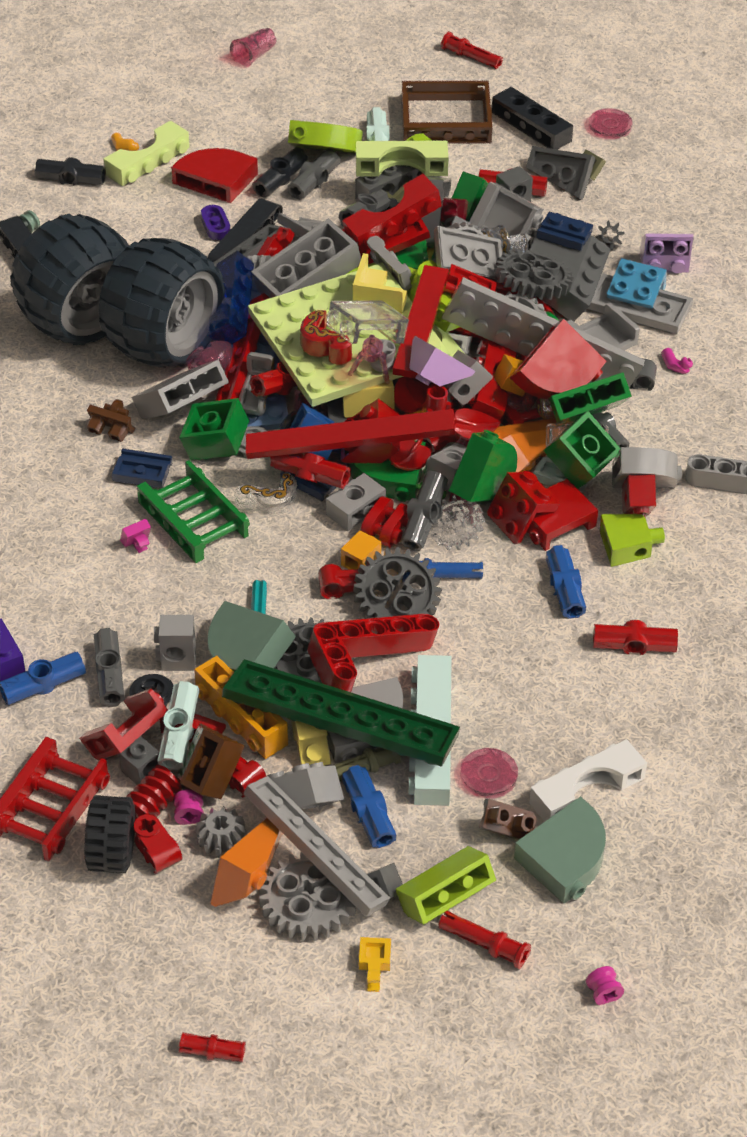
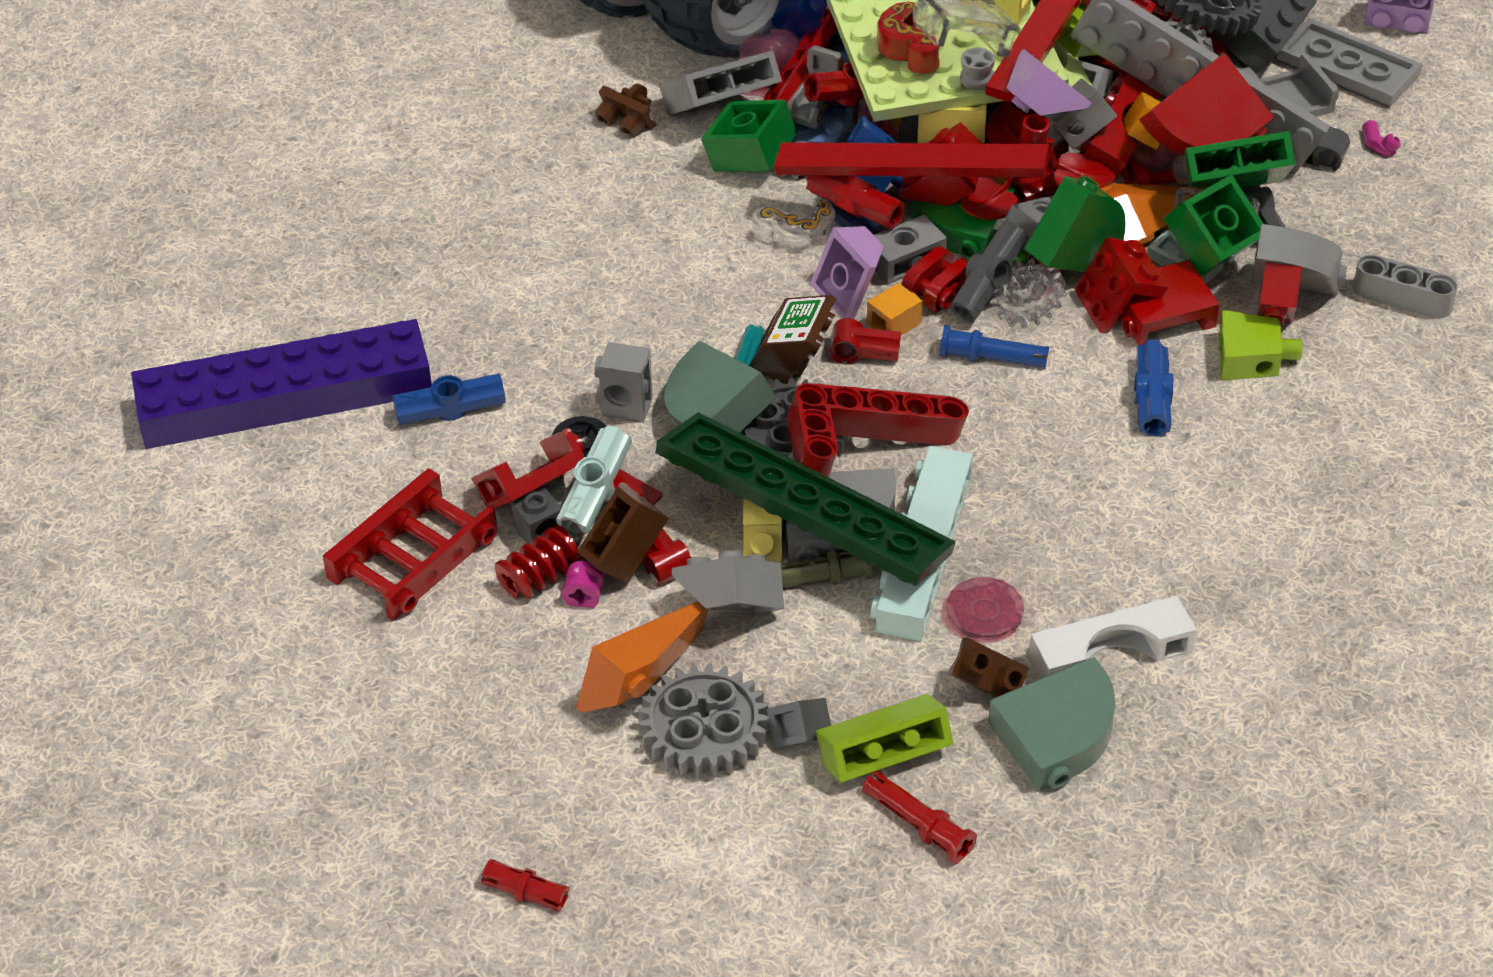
camera: 15 degrees right, 0 degrees up
(109, 667) = (534, 399): dark grey piece -> none
(109, 834) = (469, 597): black tyre -> none
(137, 535) = (617, 247): dark pink tile -> none
(142, 466) = (649, 171): dark blue plate -> none
(156, 843) = (528, 620): red piece -> none
(181, 529) = (675, 250): green fence -> none
(220, 830) = (612, 616): light grey gear -> none
(262, 730) = (701, 504): light orange brick -> none
(293, 585) = (793, 336): none -> reddish brown slope
(317, 846) = (726, 658): light grey plate -> none
(318, 525) = (847, 267): none -> lavender slope
(369, 806) = (814, 624): blue piece -> none
(372, 352) = (959, 60): clear pink plant -> none
(374, 957) = (766, 812): yellow plate -> none
(375, 577) = (901, 343): dark grey gear -> none
(604, 985) = (1061, 905): dark pink wheel -> none
(635, 637) = (1227, 472): red piece -> none
(637, 283) = (1351, 35): dark azure bracket -> none

